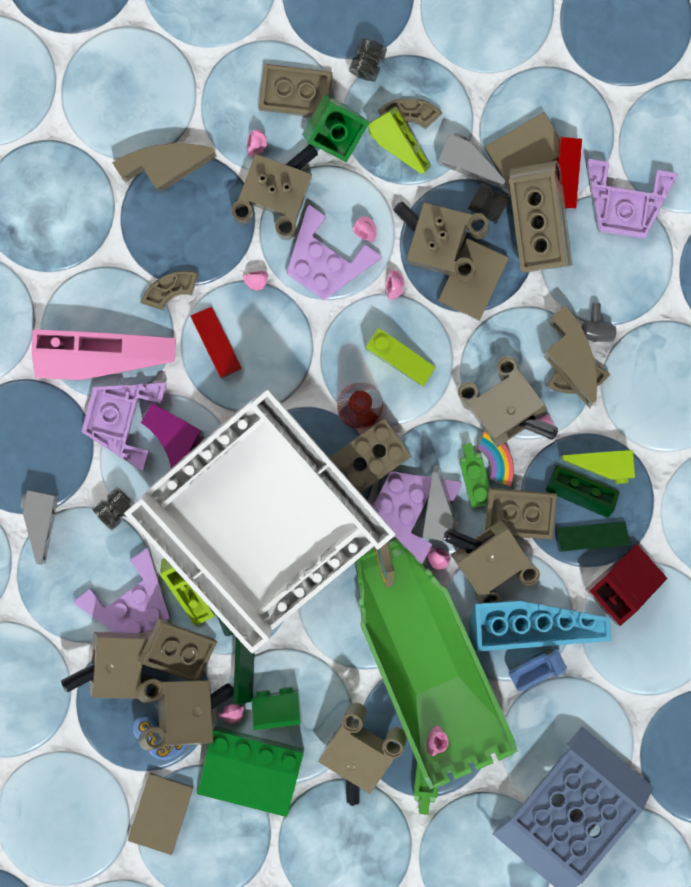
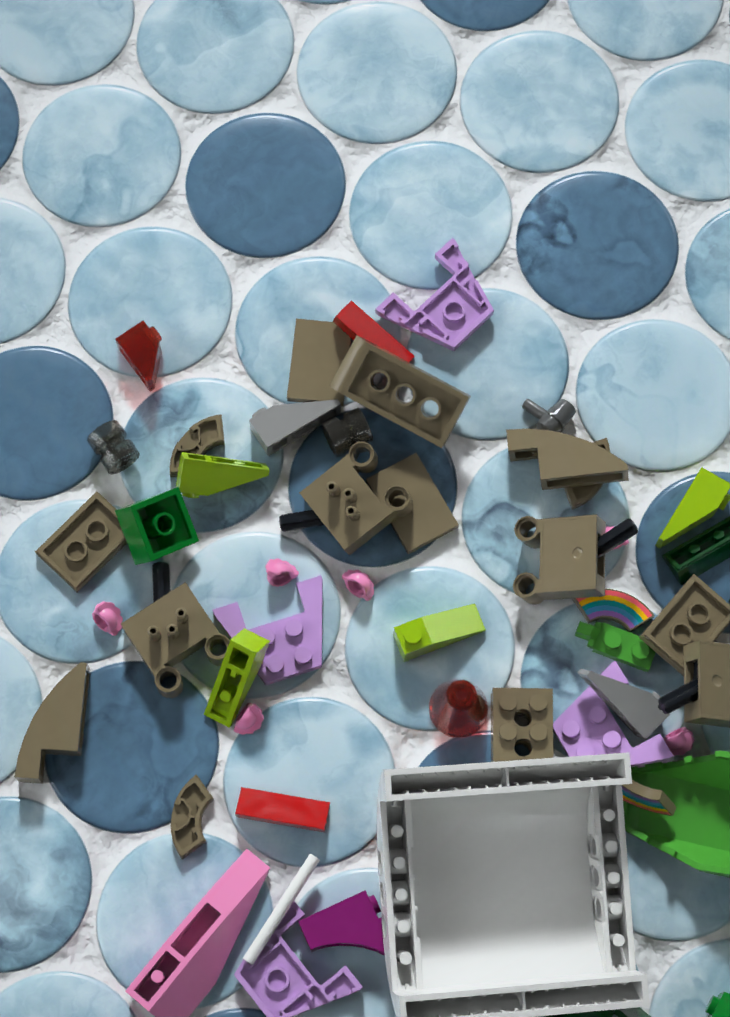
camera: 55 degrees left, 15 degrees down
(152, 387) = (281, 909): none -> white bar
(276, 251) = (236, 676): none -> lime slope
(446, 29) = (142, 351): none -> clear red slope

